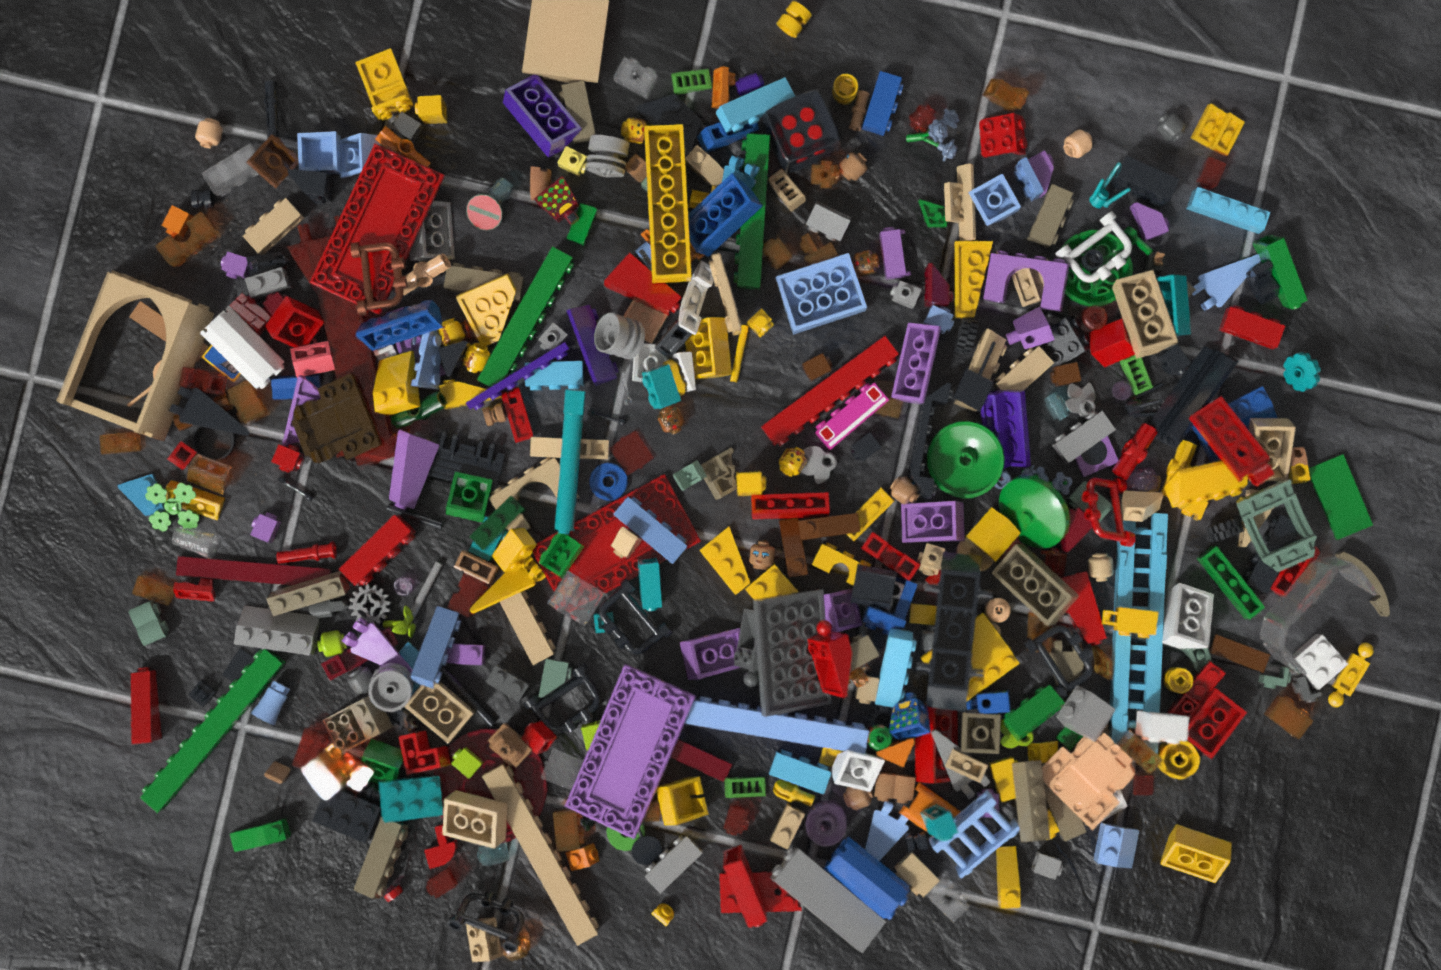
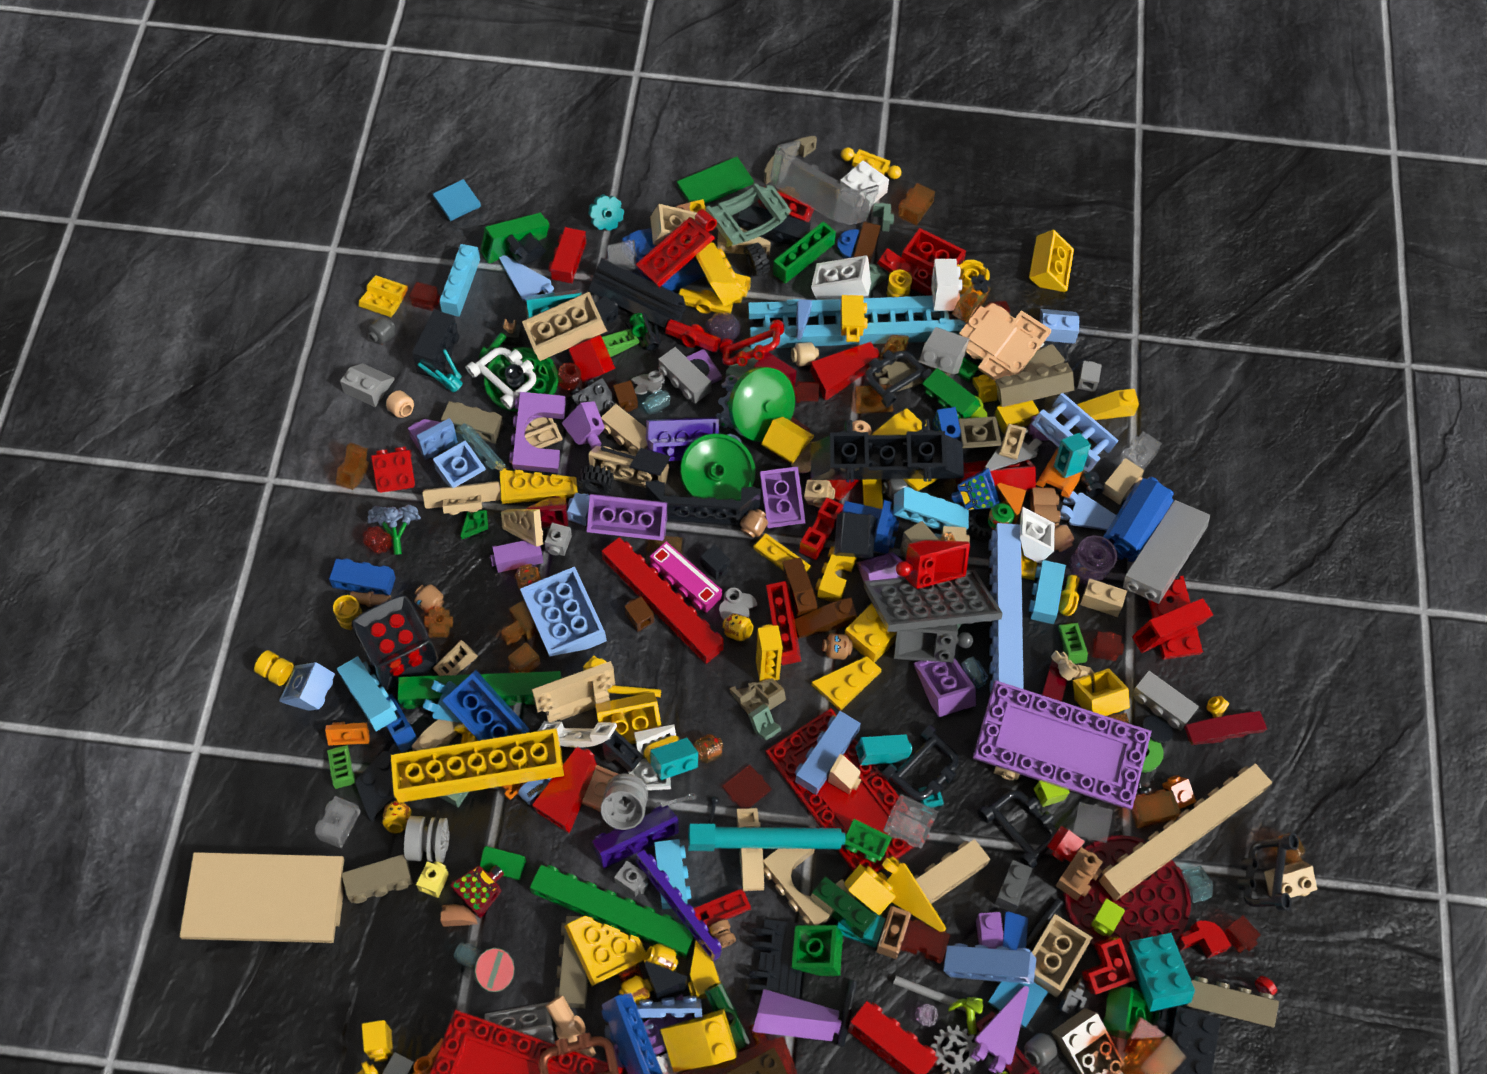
camera: 105 degrees left, 25 degrees down
(386, 697) = (1043, 1007): light grey wheel -> none
(463, 676) = (1015, 931): none -> blue slope
(475, 819) = (1167, 896): tan brick -> none
(541, 114) = (381, 915): dark purple slope -> none
(554, 675) = (996, 839): sand green slope -> none
(608, 493) = (776, 818): blue tile -> none
(636, 167) = (437, 809): medium nougat slope -> none
(639, 915) = (1225, 727): none -> dark red slope
(710, 775) = (1069, 669): none -> tan bar
(721, 684) = (975, 672): none -> clear light blue brick
(749, 84) = (344, 706): dark purple brick -> none
(772, 50) = (307, 686): none -> light blue slope
(828, 221) = (487, 615): light grey brick -> none
(917, 260) = (523, 524): none -> tan wing
(1012, 223) = (482, 447): none -> clear light blue plate
(1035, 584) = (831, 398): dark tan brick -> none
(1109, 111) = (366, 383): none -> light grey slope
(1122, 390) = (635, 351): clear purple tile -> none
(1139, 505) = (743, 323): tan slope -> none
(1142, 568) = (802, 315): none -> medium blue slope
(1149, 221) = (473, 341): medium lavender slope -> none
(1153, 394) = (638, 324): none -> green bush
(1154, 763) = (980, 283): none -> black plant
(1241, 384) = (623, 254): none -> clear piece
(1244, 632) = (847, 242): none -> blue plate
(1301, 688) = (890, 194): dark grey bracket -> none
(1337, 211) = (456, 200): none -> dark azure tile

